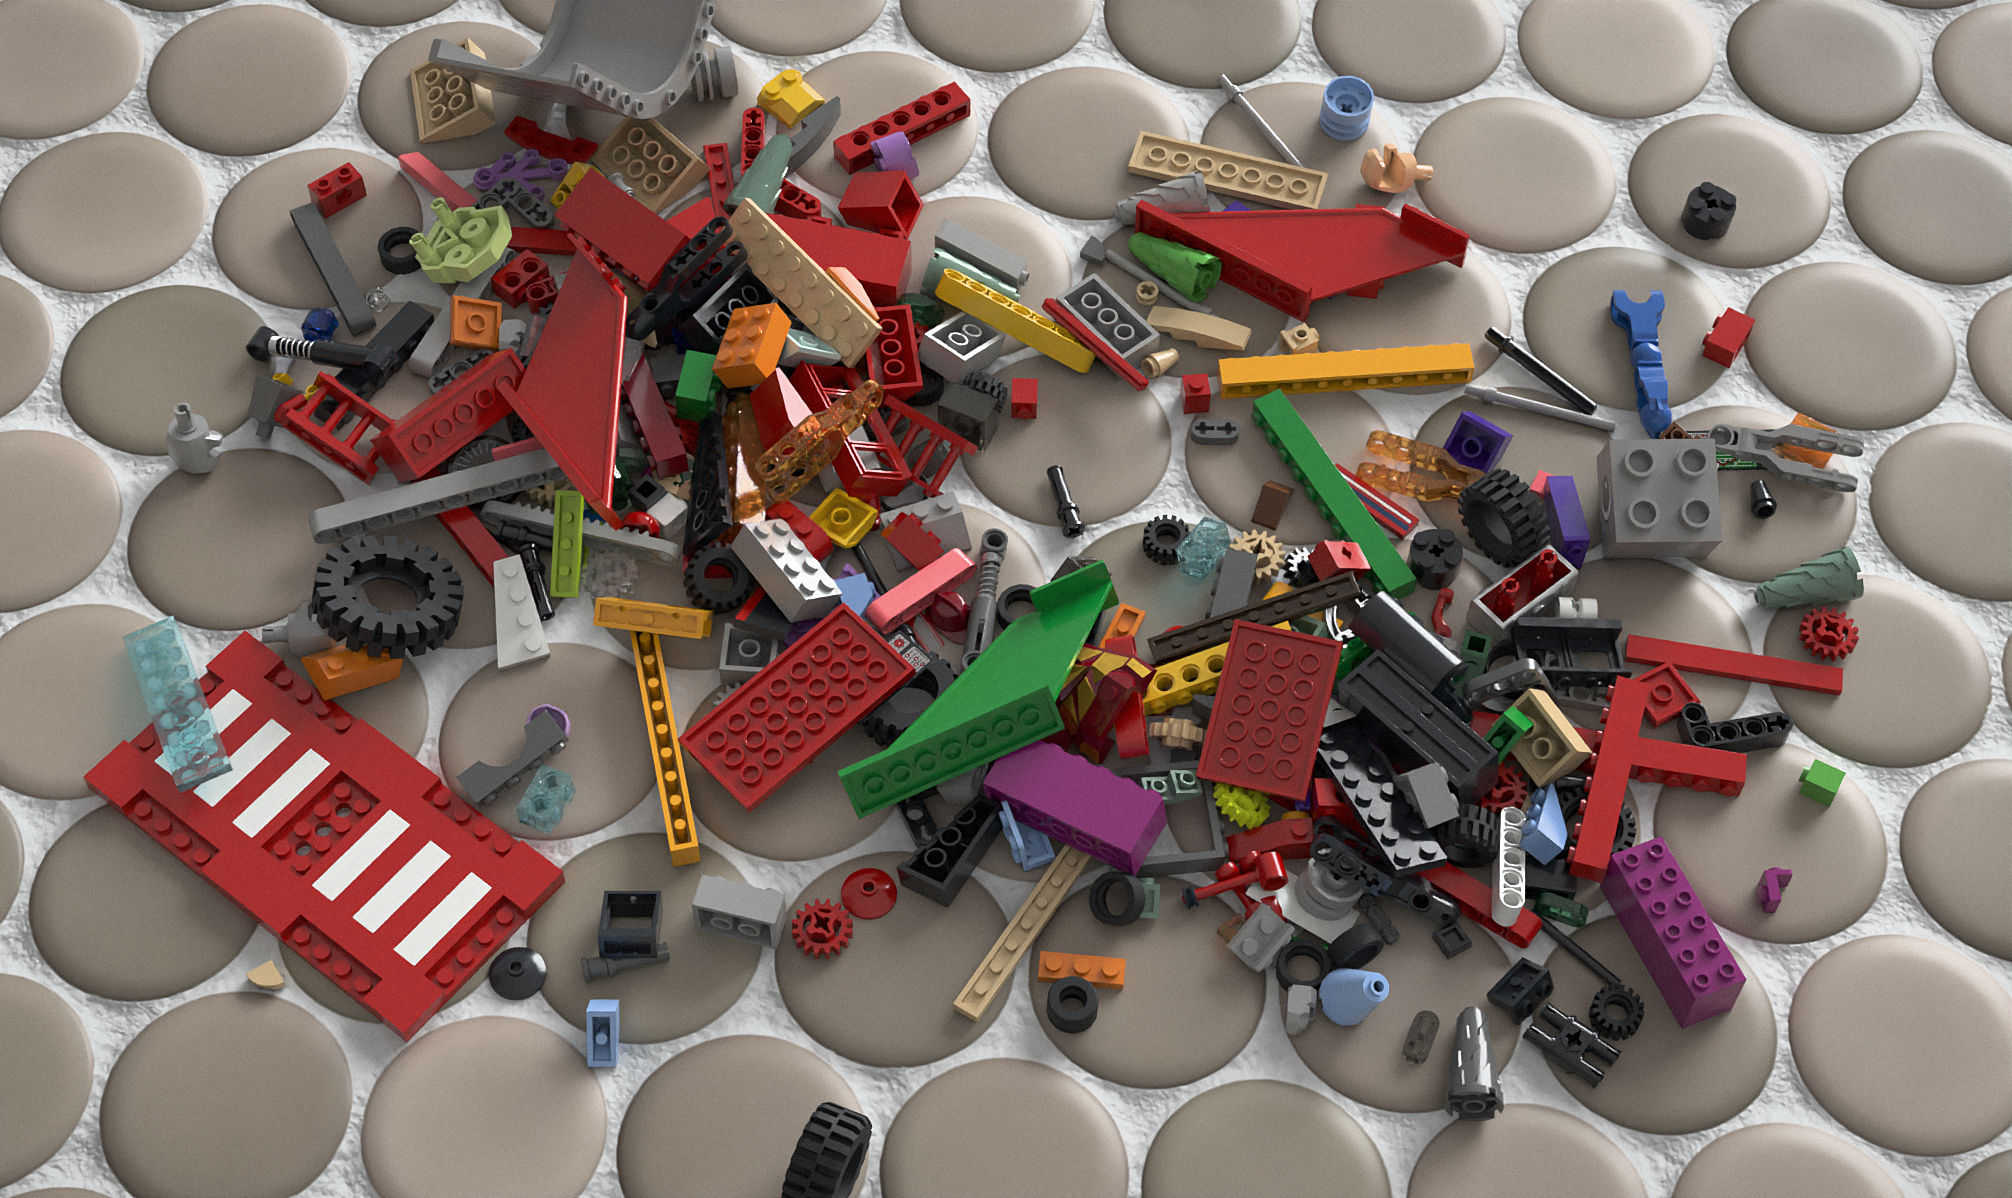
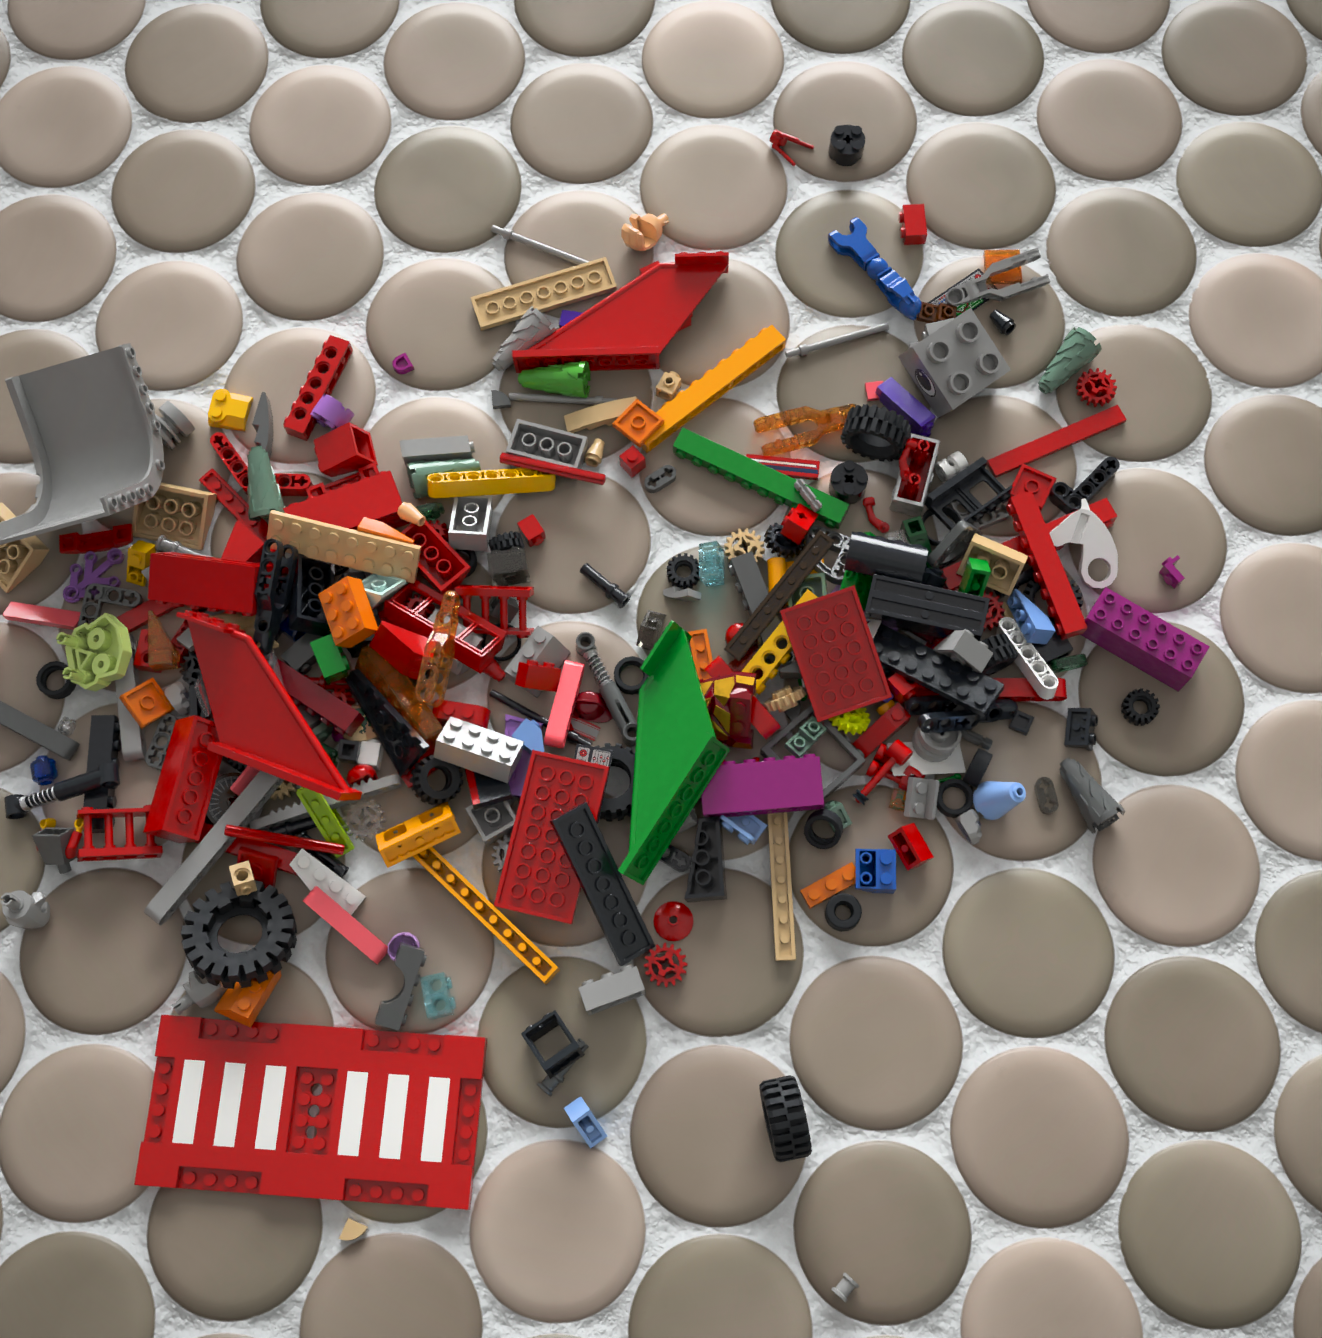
camera: 30 degrees left, 15 degrees up
(177, 704) = (157, 1095): clear light blue plate -> none
(434, 544) = (239, 872): none -> tan brick
(460, 547) = (262, 865): none -> red tile
(505, 662) = (346, 925): none -> coral beam
(508, 535) = (282, 839): none -> red axle
(517, 984) = (514, 1118): black dish -> none
(530, 277) = (160, 647): none -> clear orange slope
(814, 788) = (602, 883): none -> black plate
(844, 518) = (482, 688): yellow slope -> none
(898, 294) = (410, 514): none -> light nougat cone
(1013, 157) = (402, 364): none -> magenta tile
(1145, 299) = (551, 404): tan bush -> none
(1145, 983) = (875, 870): none -> blue slope
(1147, 562) = (685, 595): none -> light grey slope
(1207, 983) = (910, 846): none -> red brick
(1230, 355) = (638, 423): none -> orange tile
(1272, 504) = (728, 506): reddish brown slope -> none
(1346, 108) = (587, 204): light blue wheel -> none
(1372, 539) = (807, 495): none -> light grey axle
(1477, 442) = (819, 389): dark purple slope -> none
(1513, 350) = (792, 310): black axle -> none
(1533, 548) = (905, 472): none -> red piece
(1569, 1031) = (1136, 737): black pin -> none
(1578, 952) = (1094, 683): black bar -> none
(1632, 165) = (780, 139): none -> red plant
(1696, 787) = (1097, 543): none -> white animal
(1821, 782) = (1154, 486): bright green brick -> none

